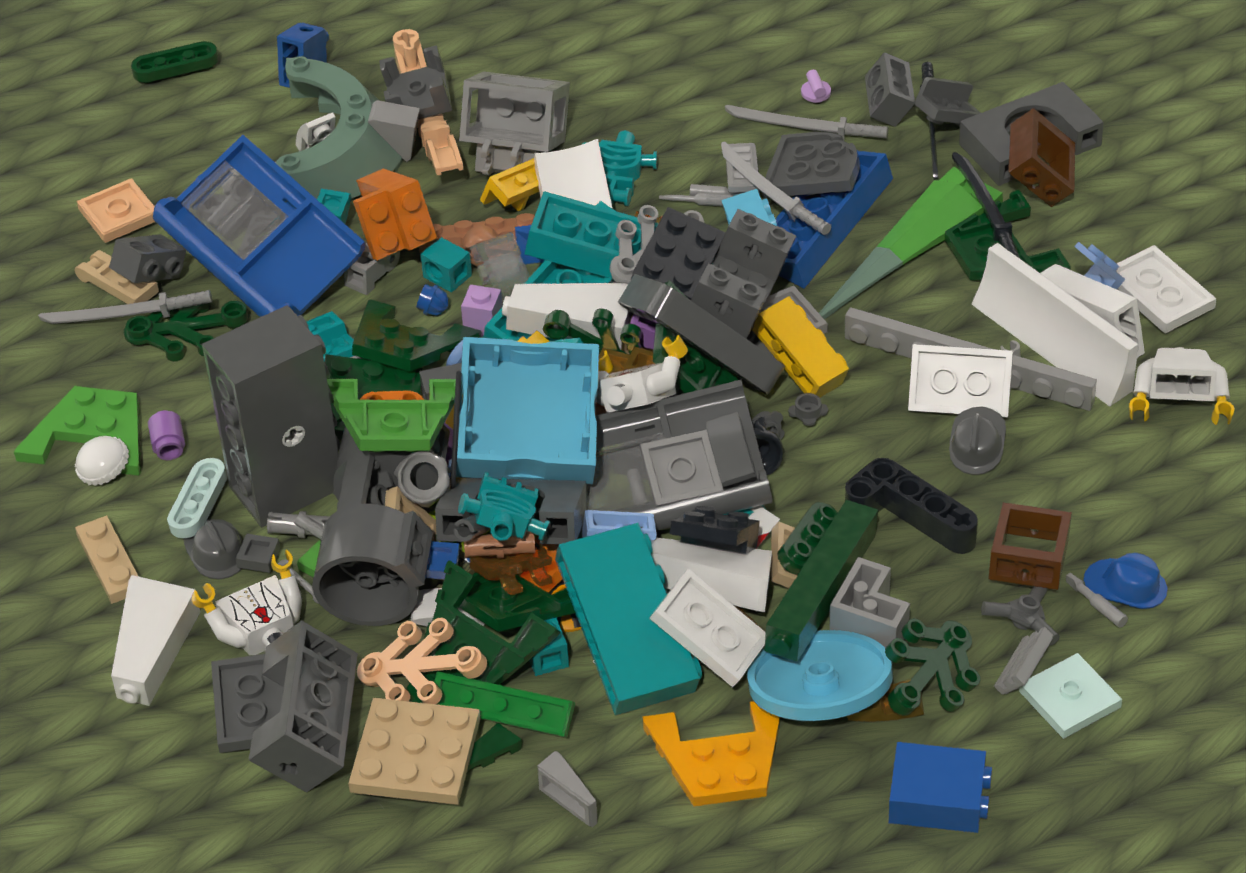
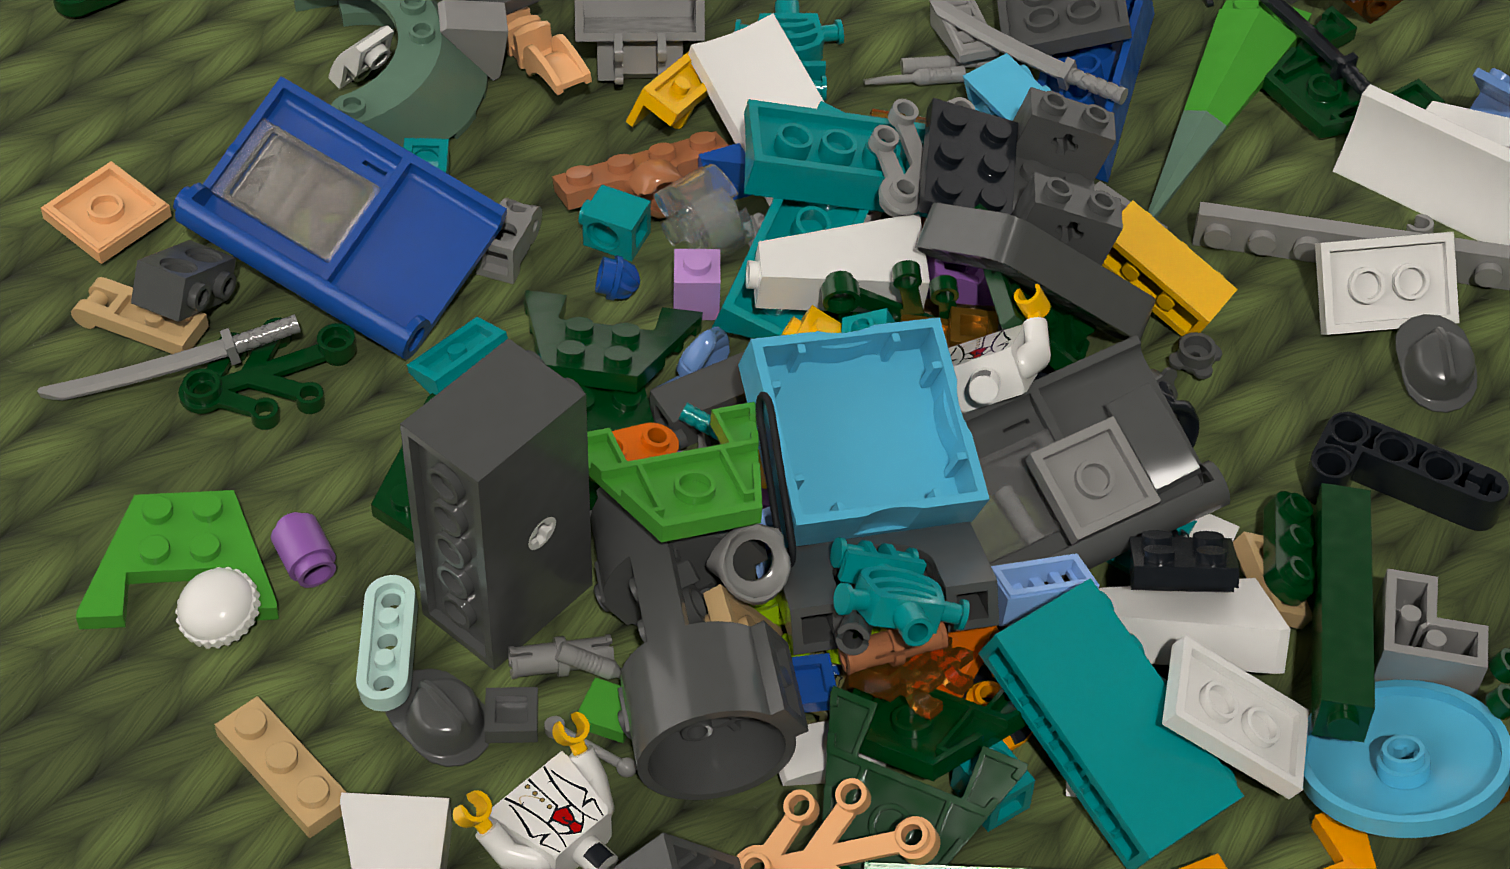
camera: 20 degrees left, 5 degrees up
(392, 213) = (531, 158): orange brick -> none

